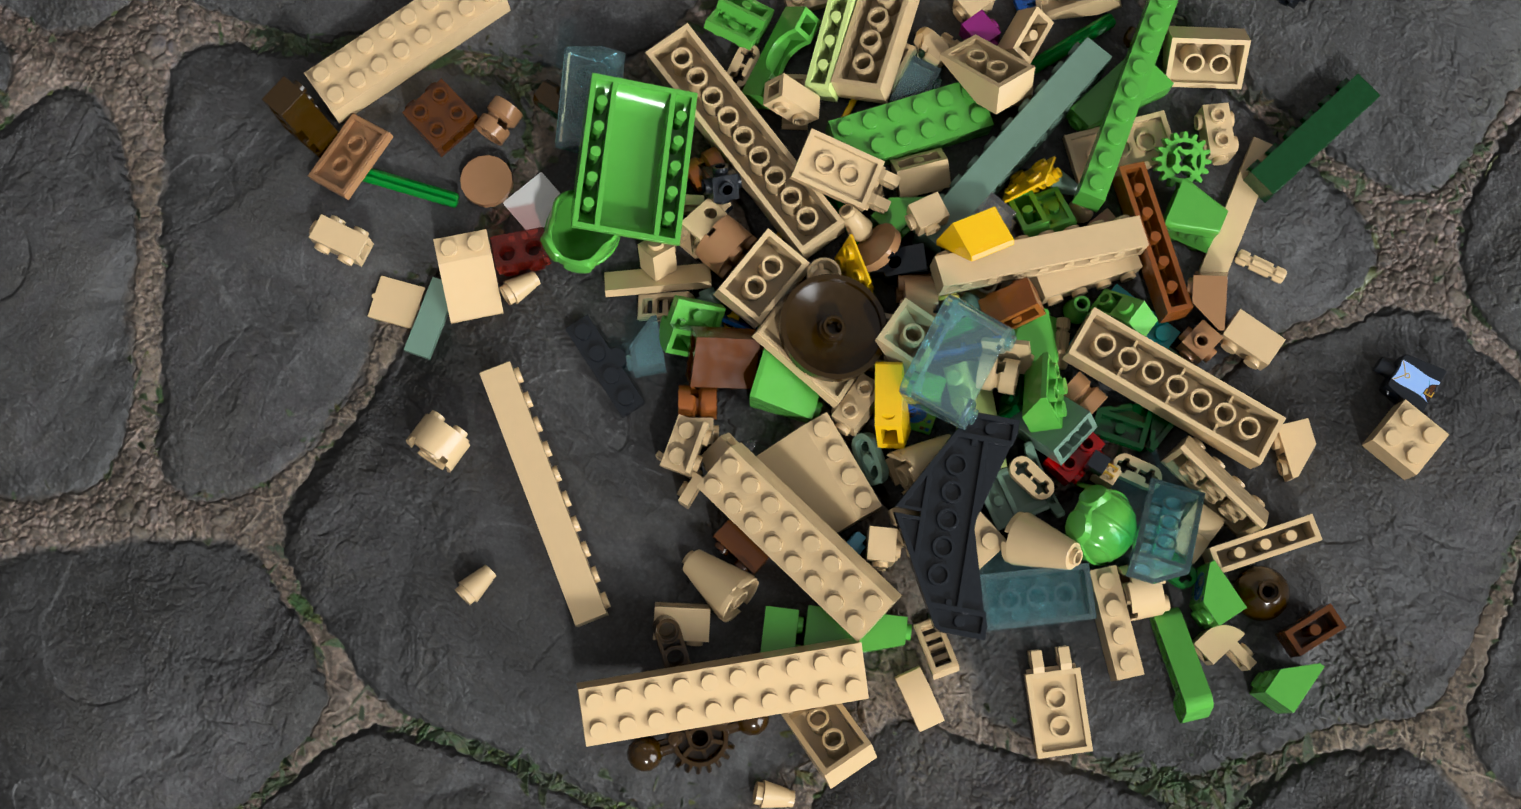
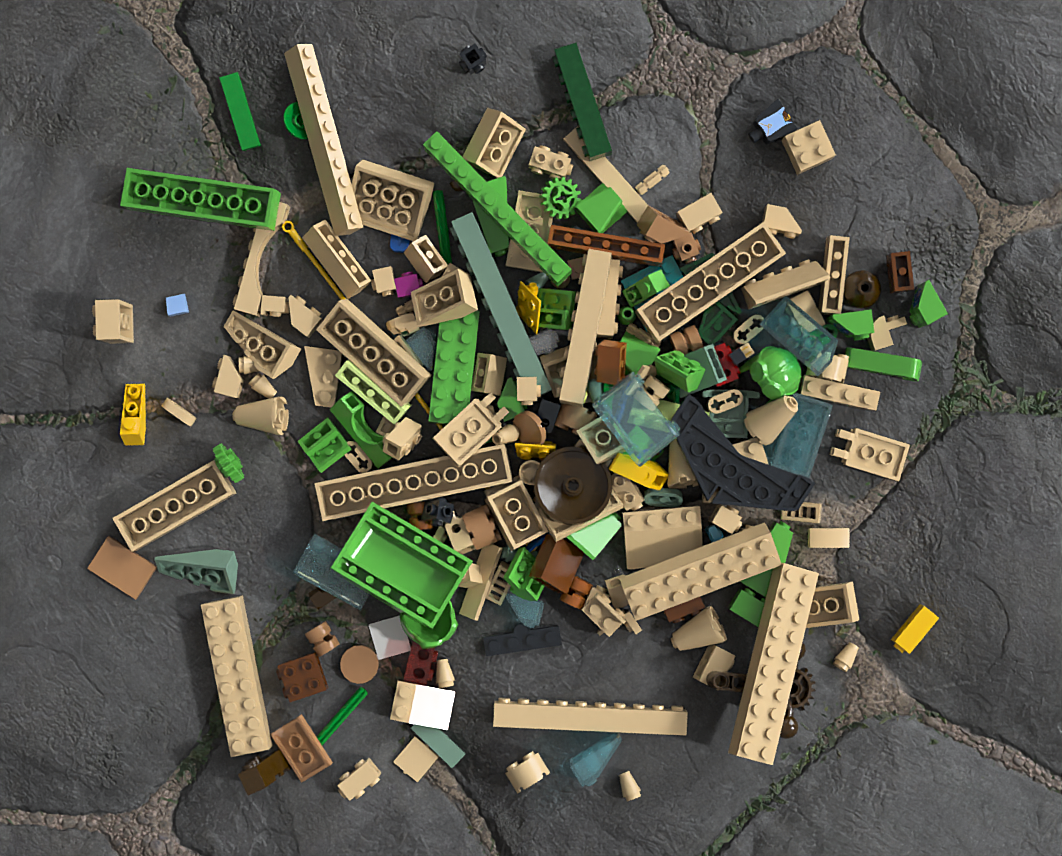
camera: 65 degrees left, 10 degrees up
(485, 518) = (592, 761): none -> clear light blue slope
(976, 235) = (559, 365): yellow slope -> none

